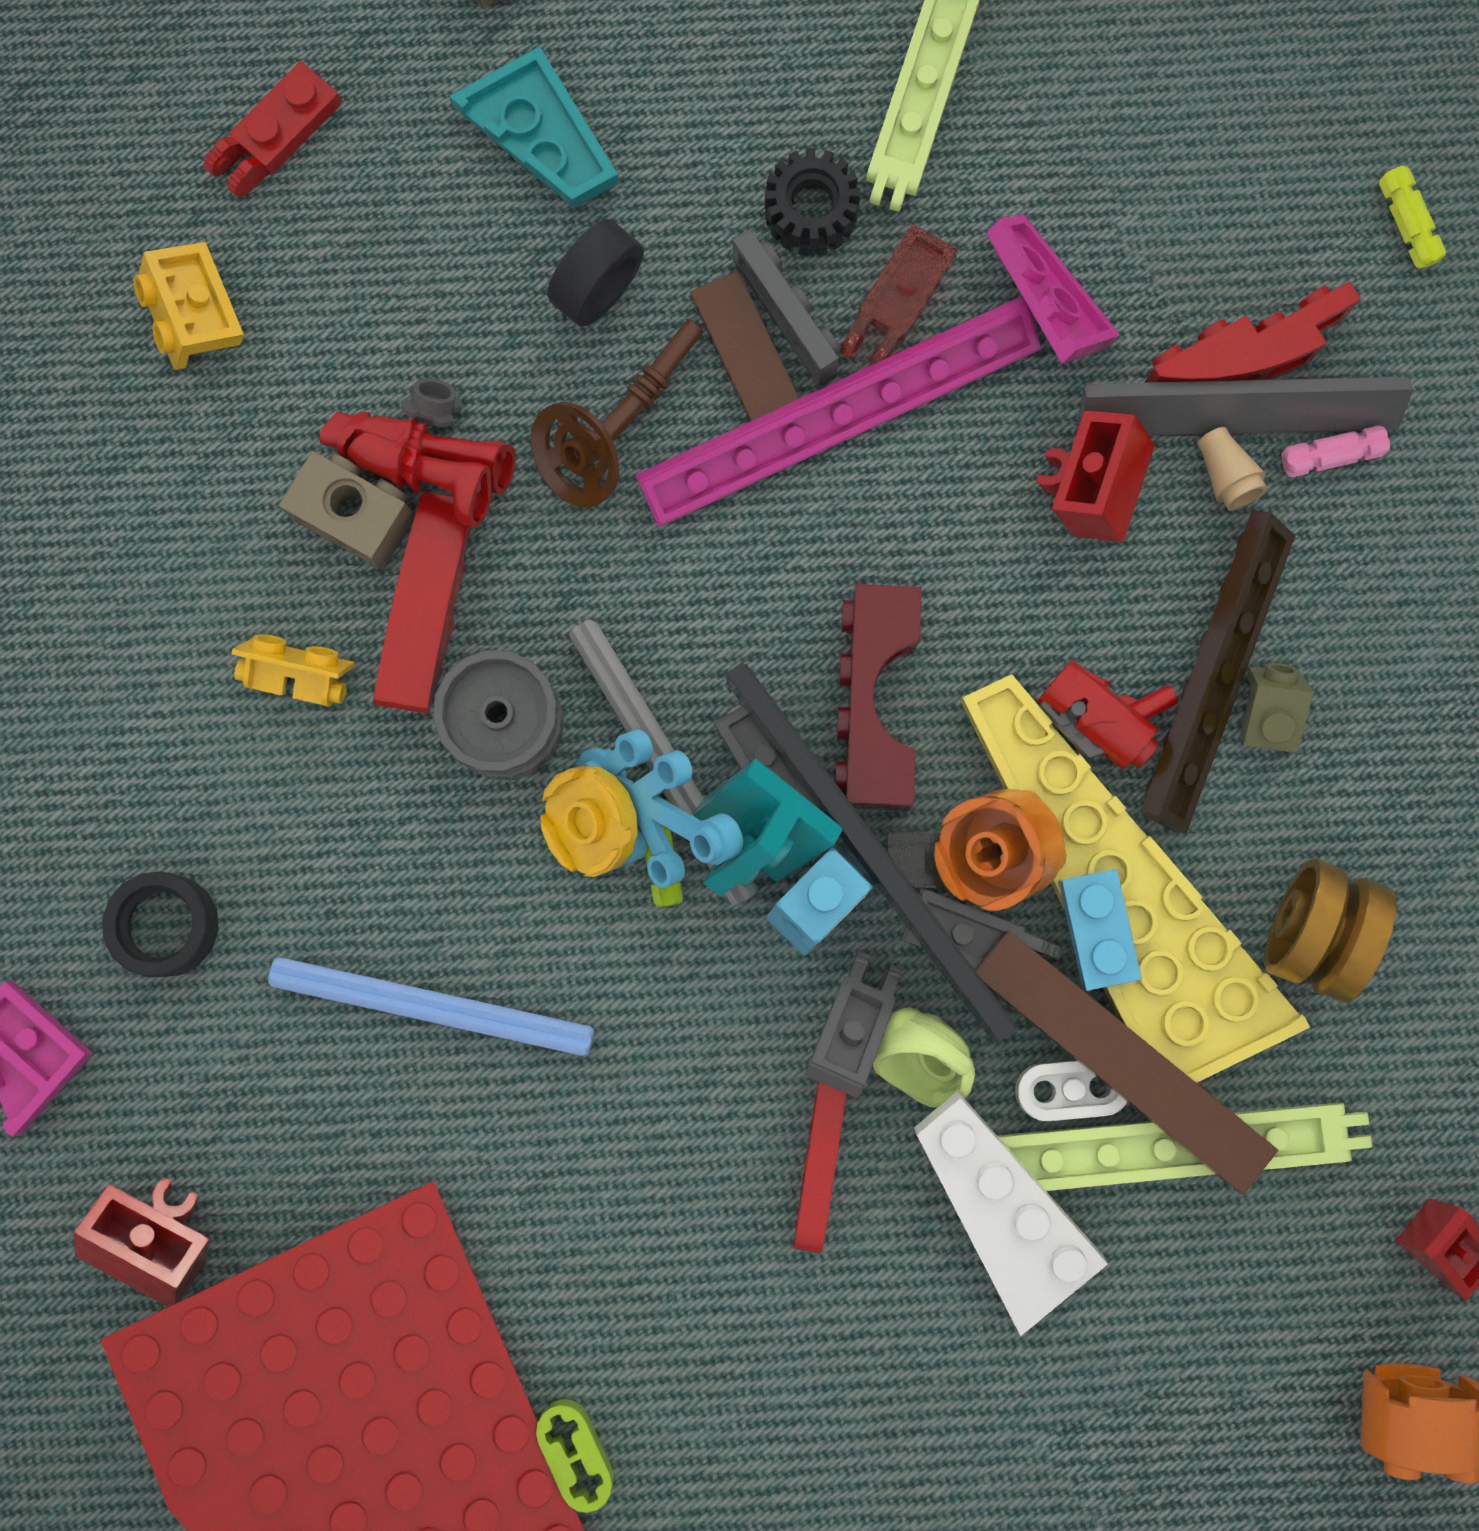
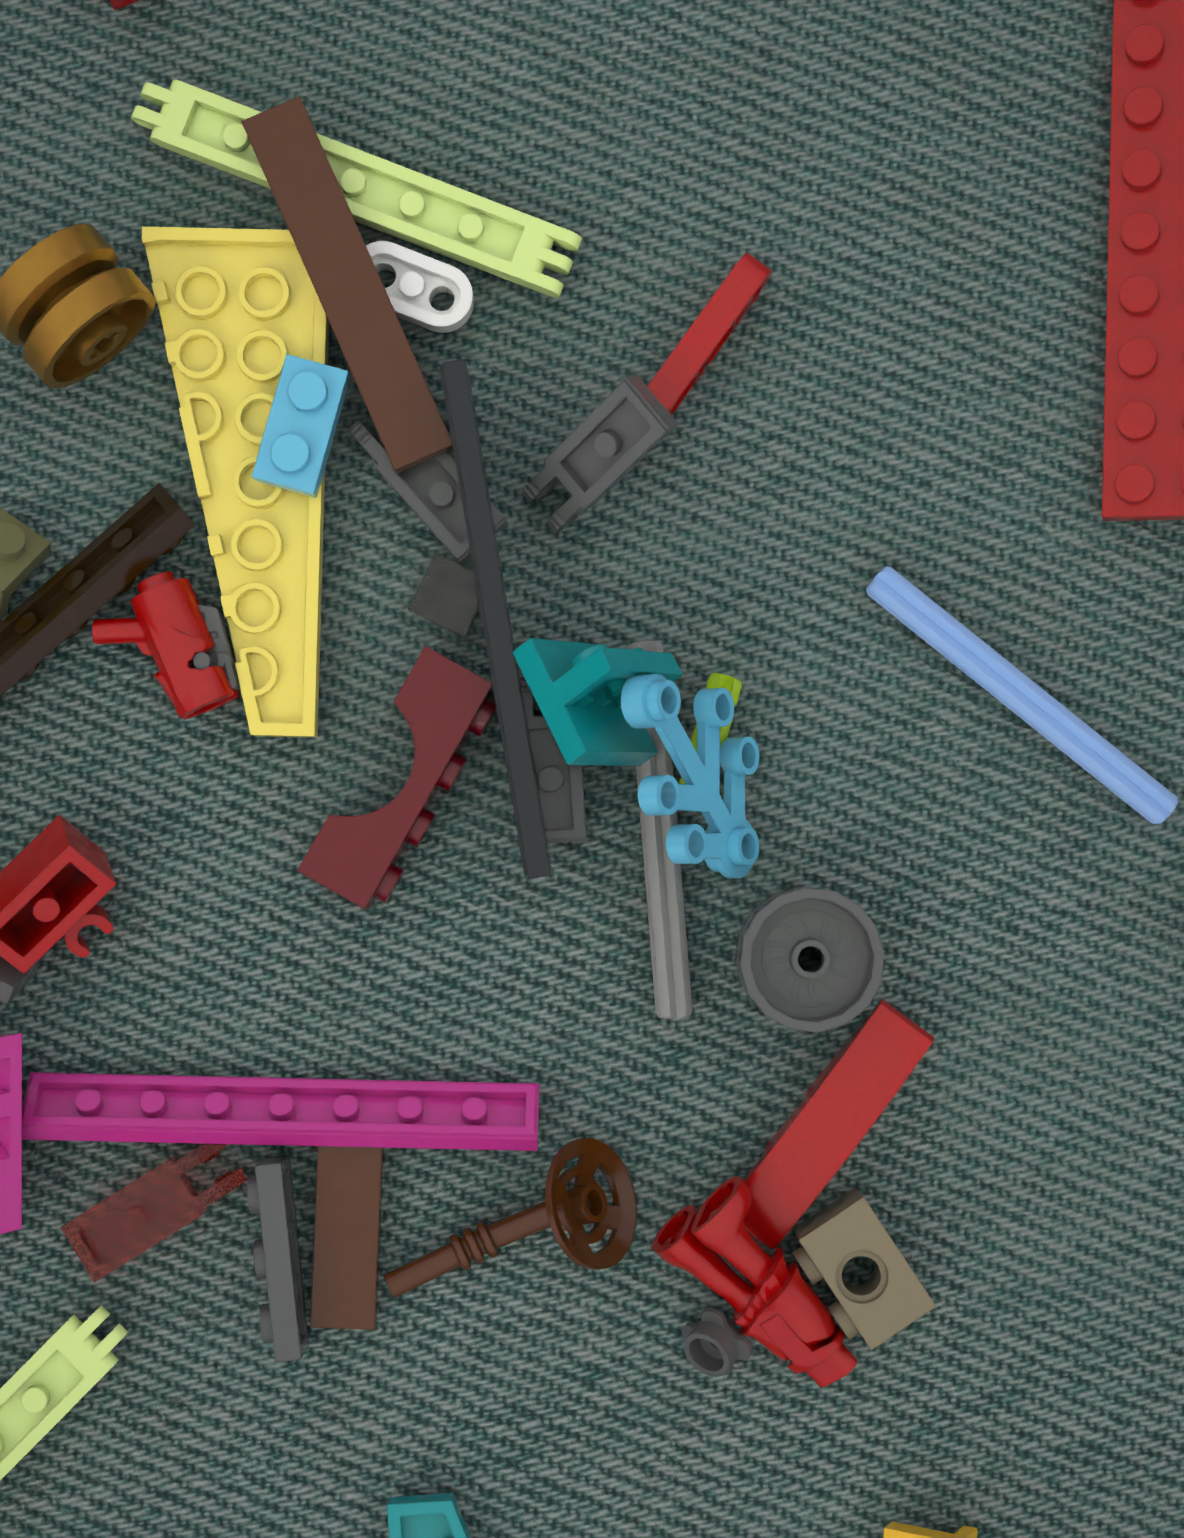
camera: 155 degrees left, 5 degrees up
(271, 662) = (1022, 1143): yellow hinge -> none
(562, 1461) = (1100, 184): lime beam -> none
(589, 820) = (767, 801): yellow tile -> none
(595, 272) = (468, 1398): black tyre -> none
(811, 173) = (168, 1396): black tyre -> none
(820, 899) = (567, 598): medium azure torso -> none
(924, 1057) = (544, 388): yellowish green hair -> none
(1013, 1222) = (541, 187): white wing -> none
(1029, 842) = (359, 556): orange brick -> none

